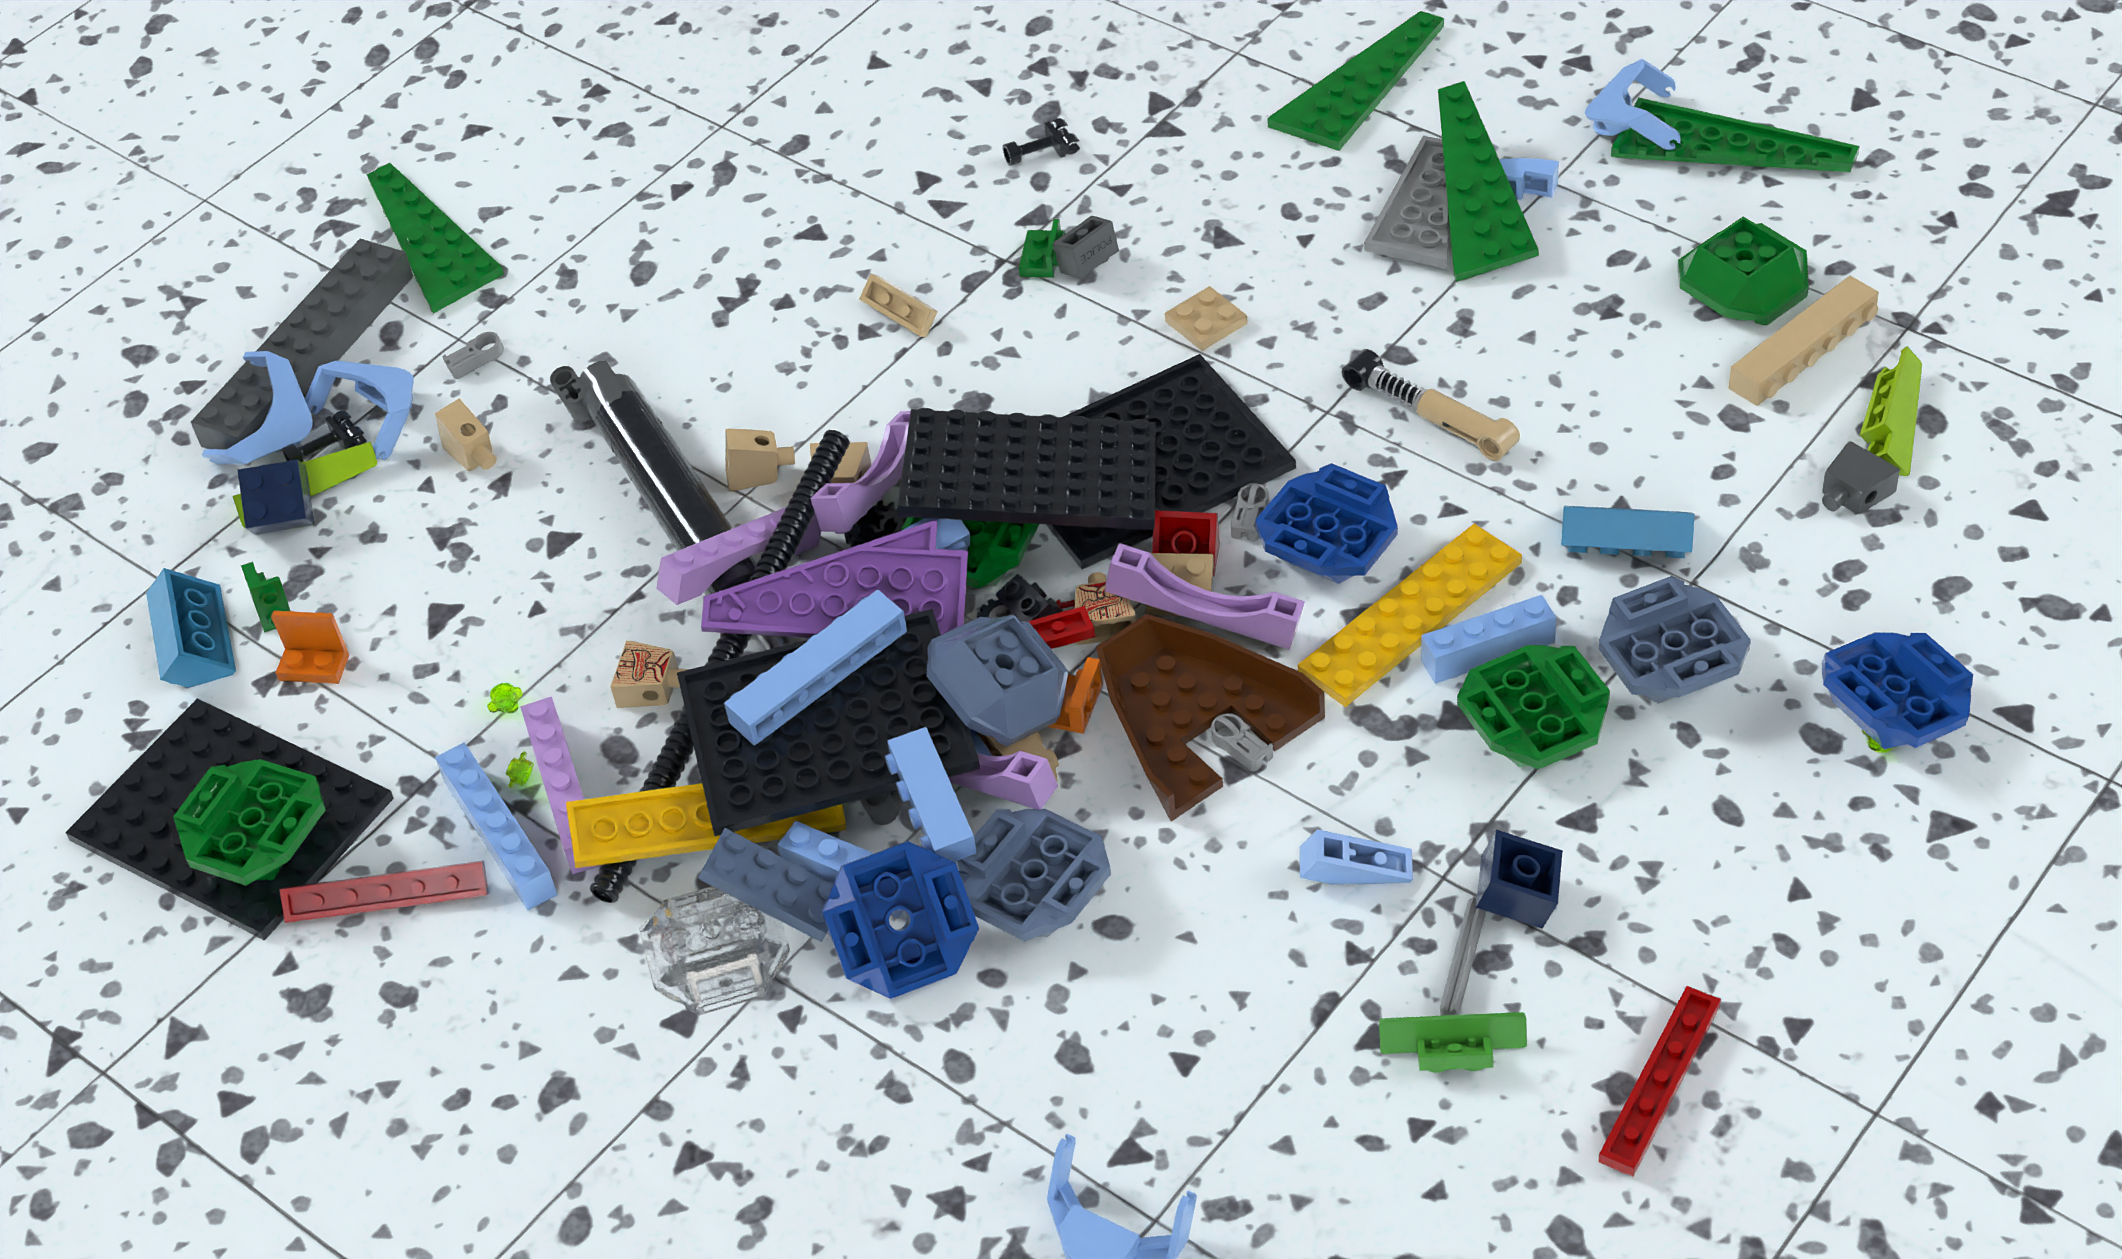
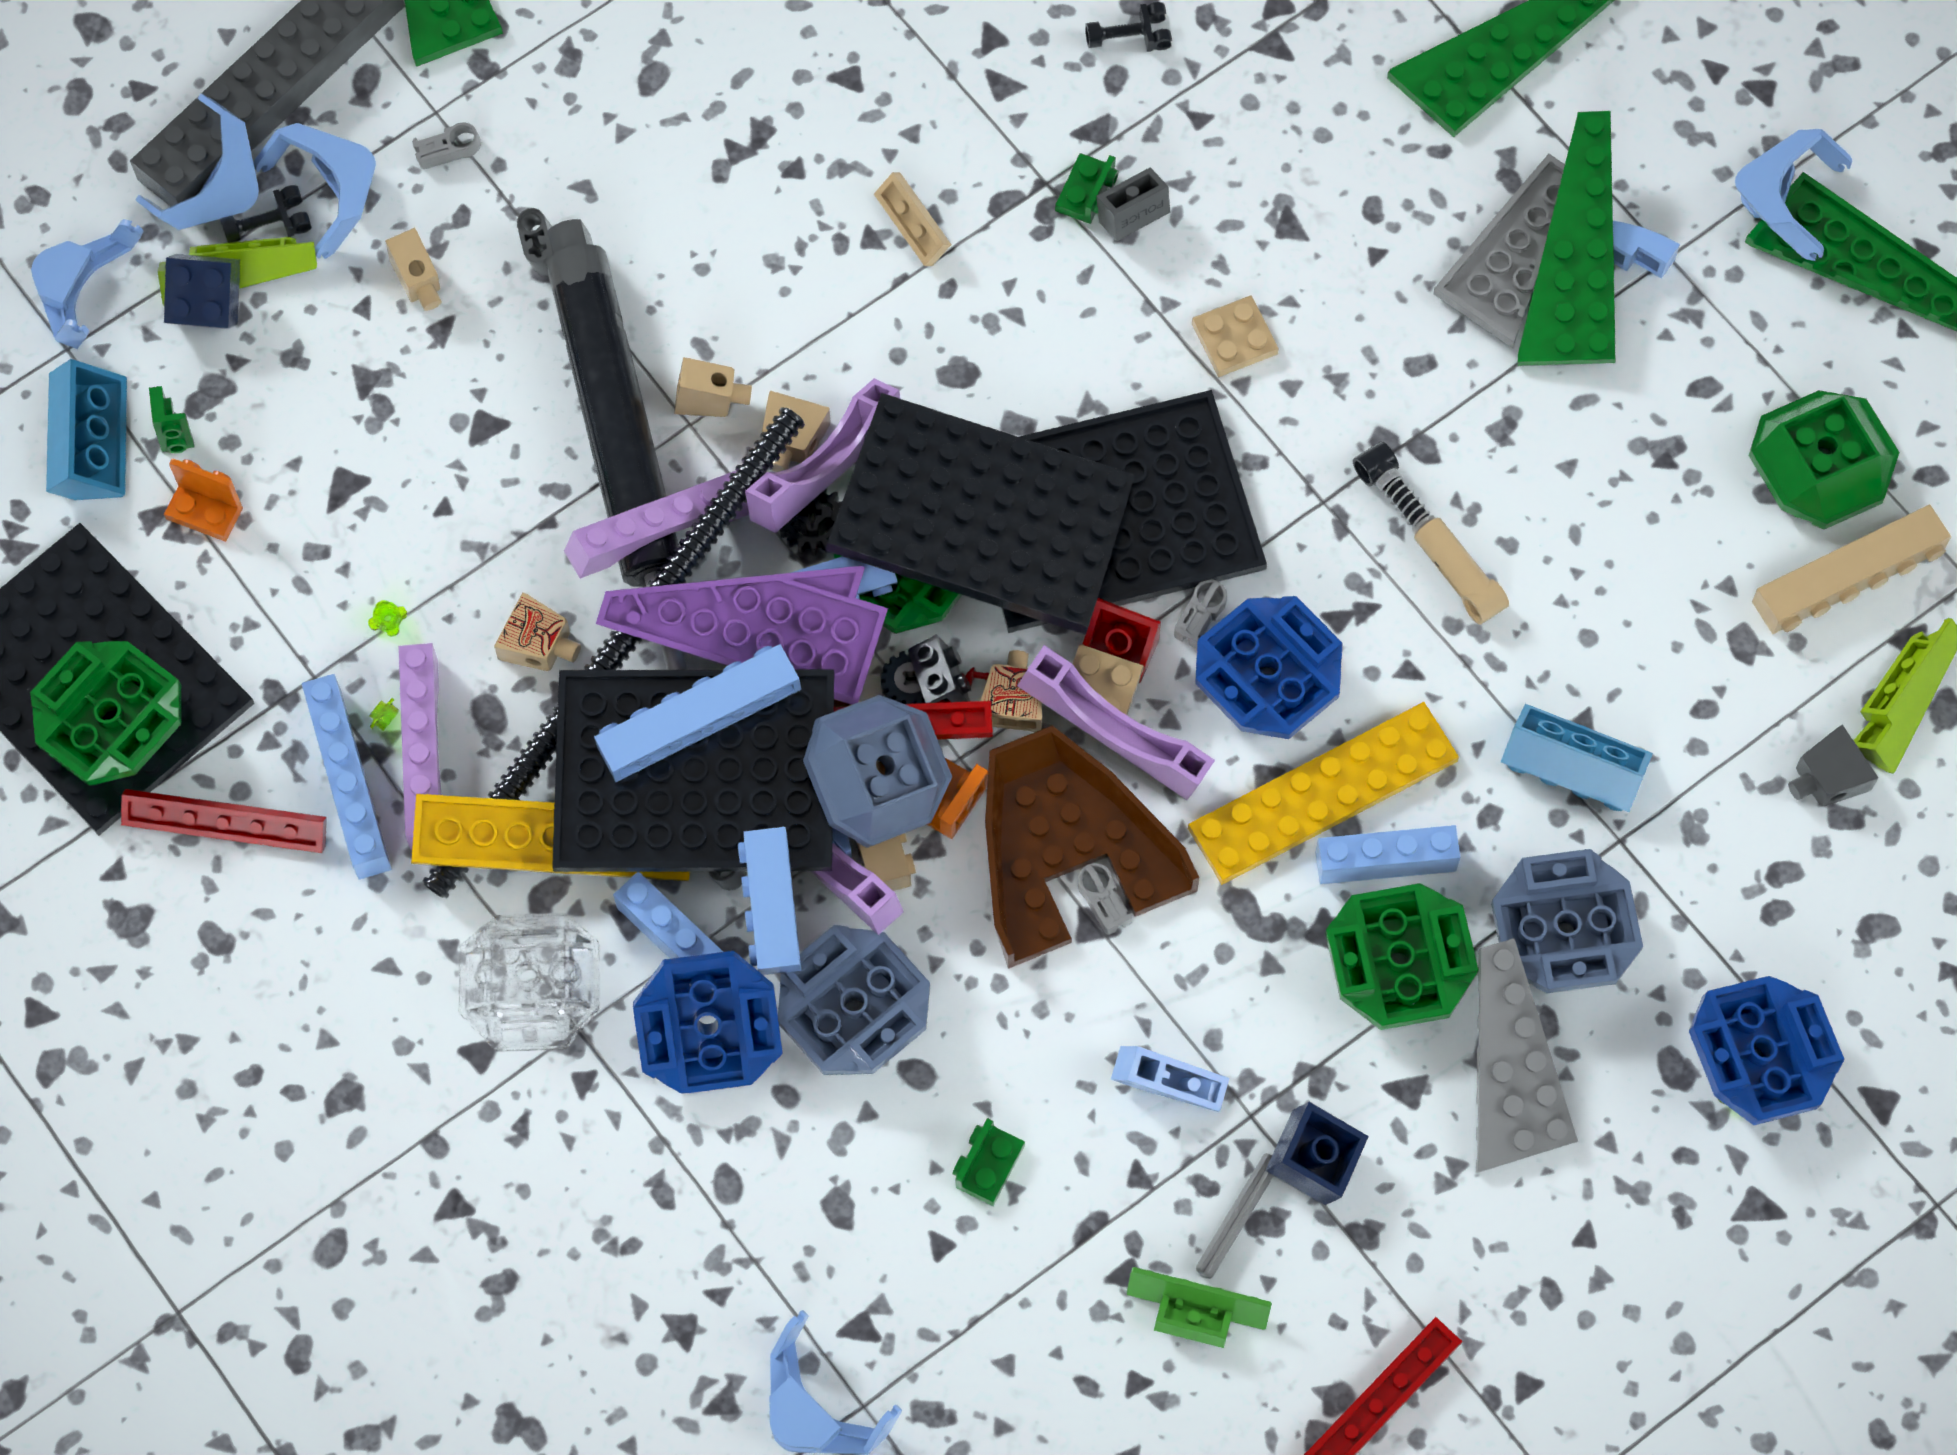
camera: 10 degrees right, 20 degrees up
(149, 517) = (64, 270): none -> light blue piece
(768, 883) = (595, 939): sand blue plate -> none
(1206, 977) = (988, 1162): none -> green bracket
(1679, 773) = (1517, 1081): none -> light grey wing

